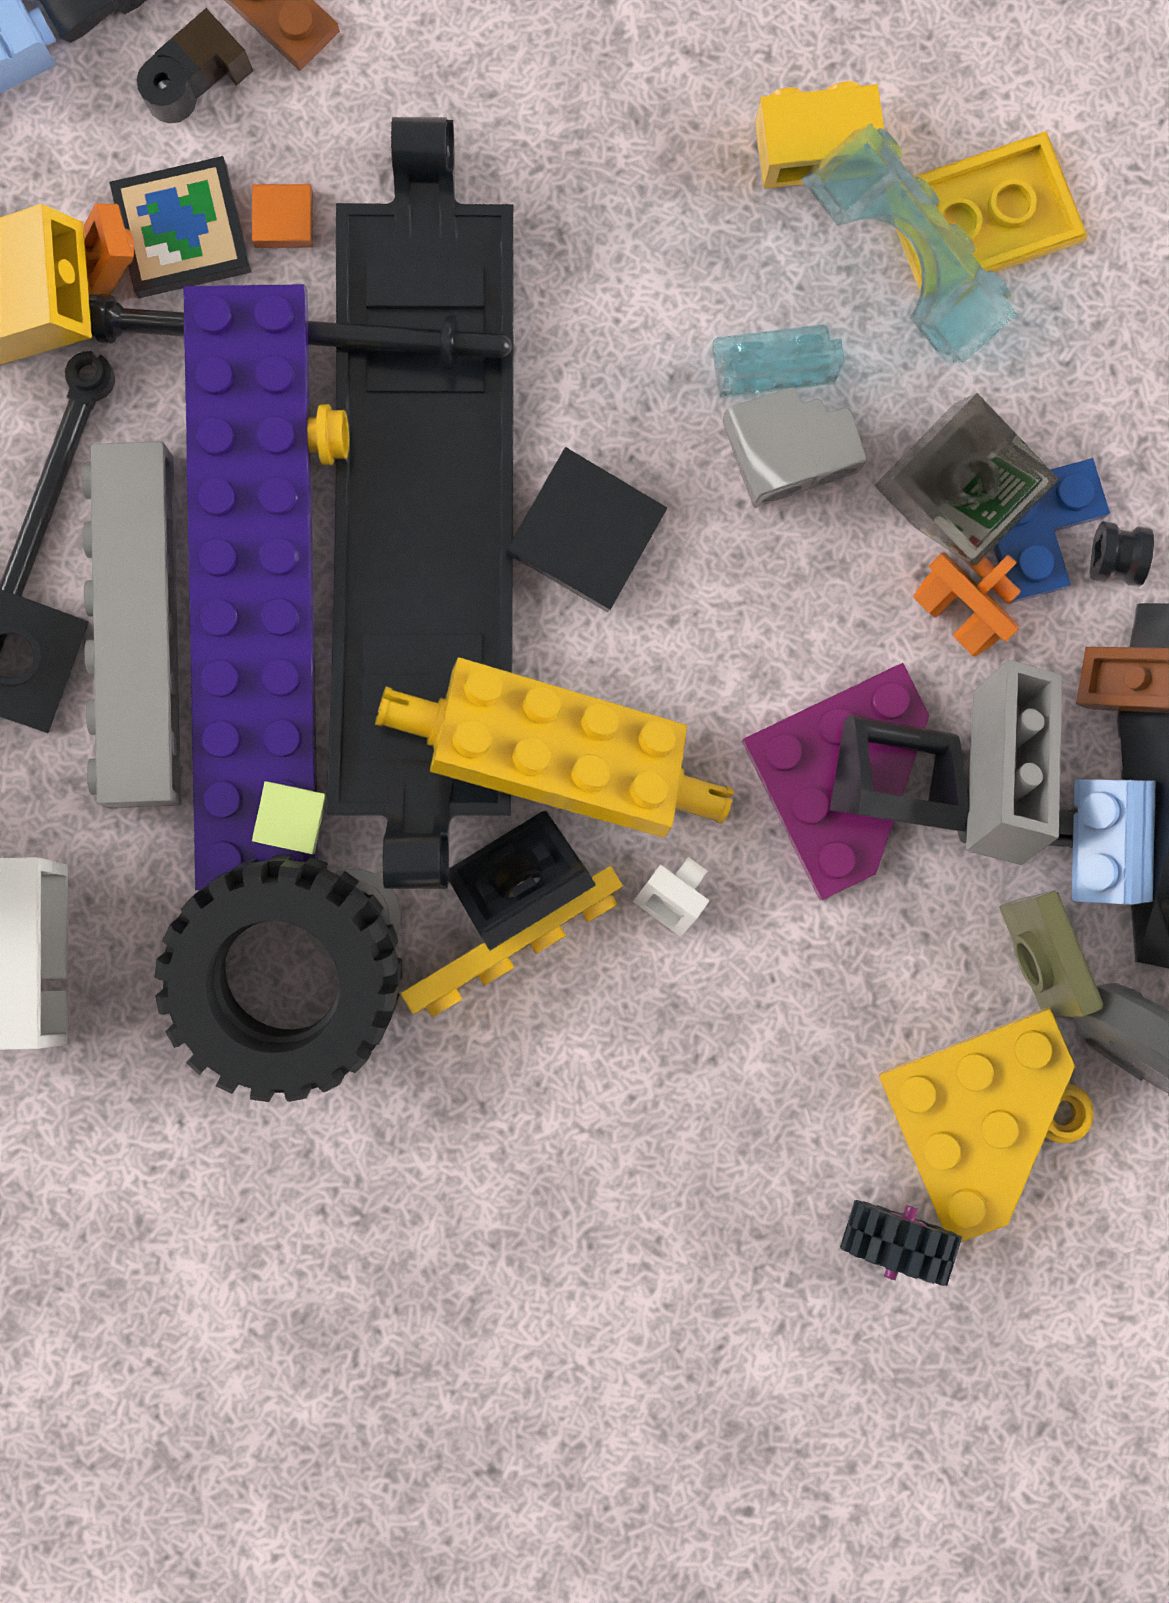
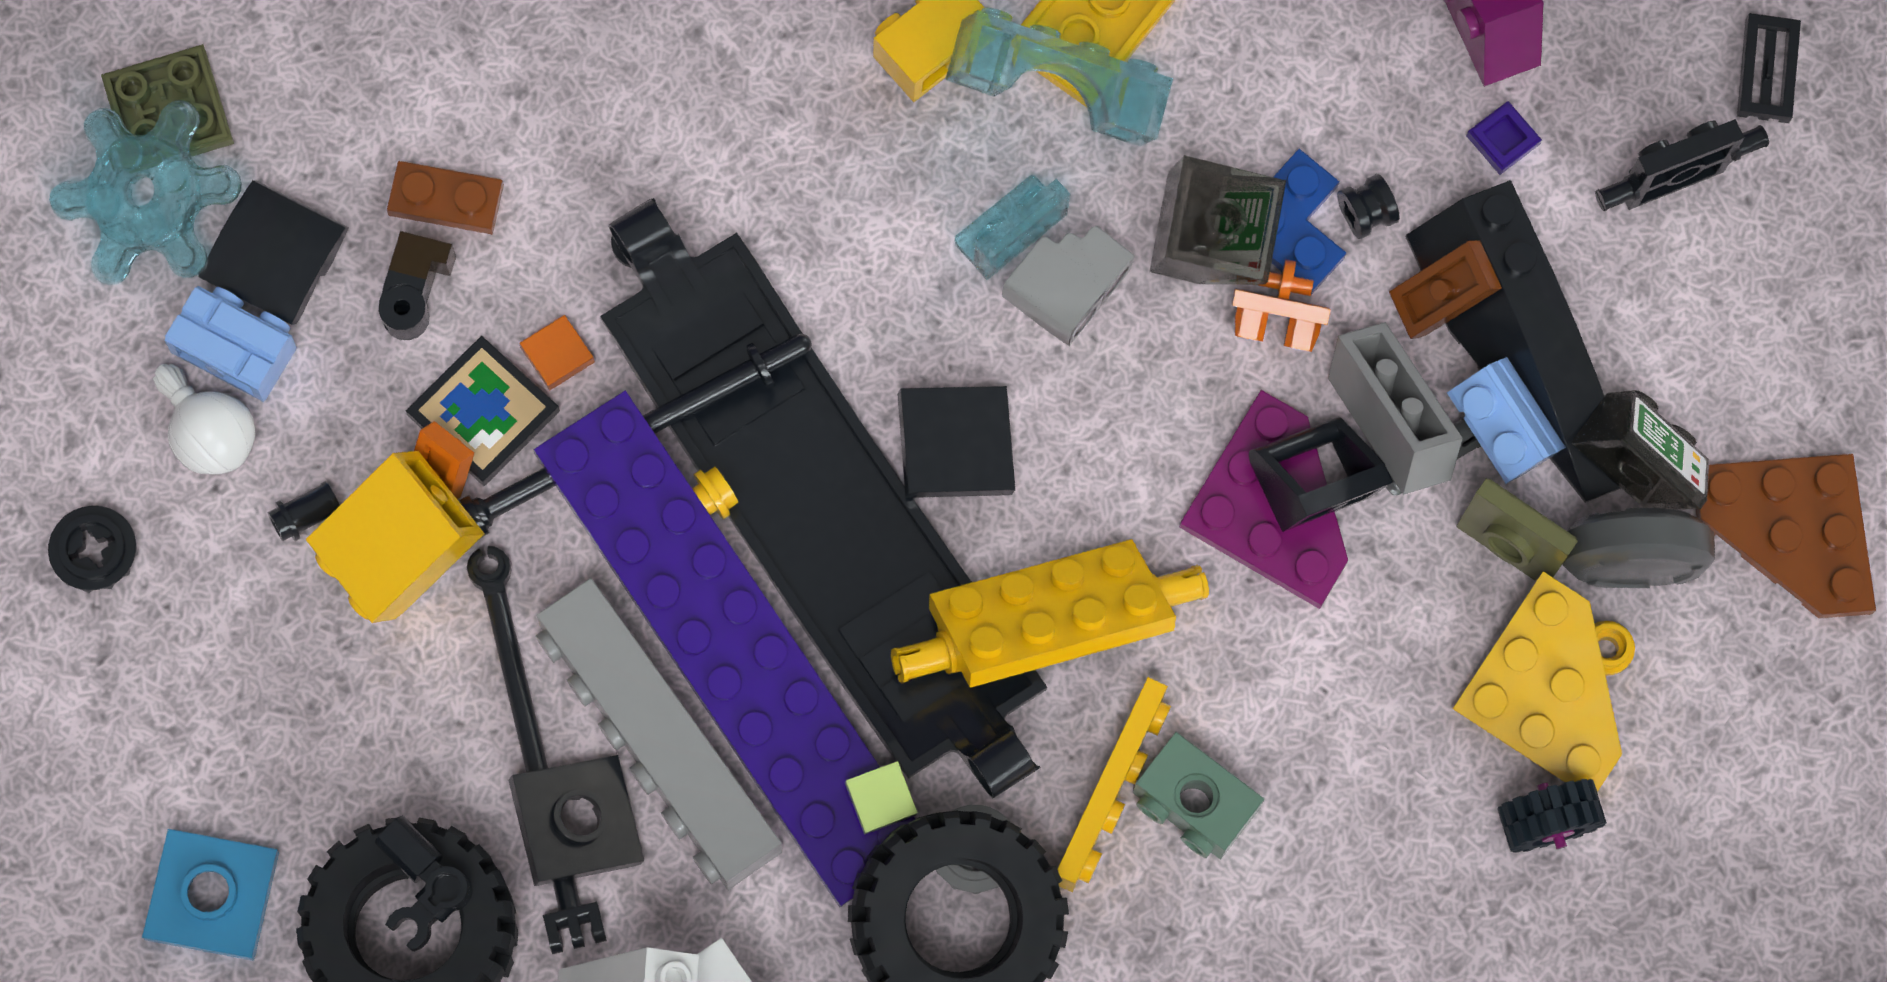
camera: 30 degrees left, 10 degrees down
(520, 855) = (1083, 707): black piece -> none
(610, 1032) = (1186, 767): none -> sand green brick
(674, 897) = (1209, 674): white tile -> none

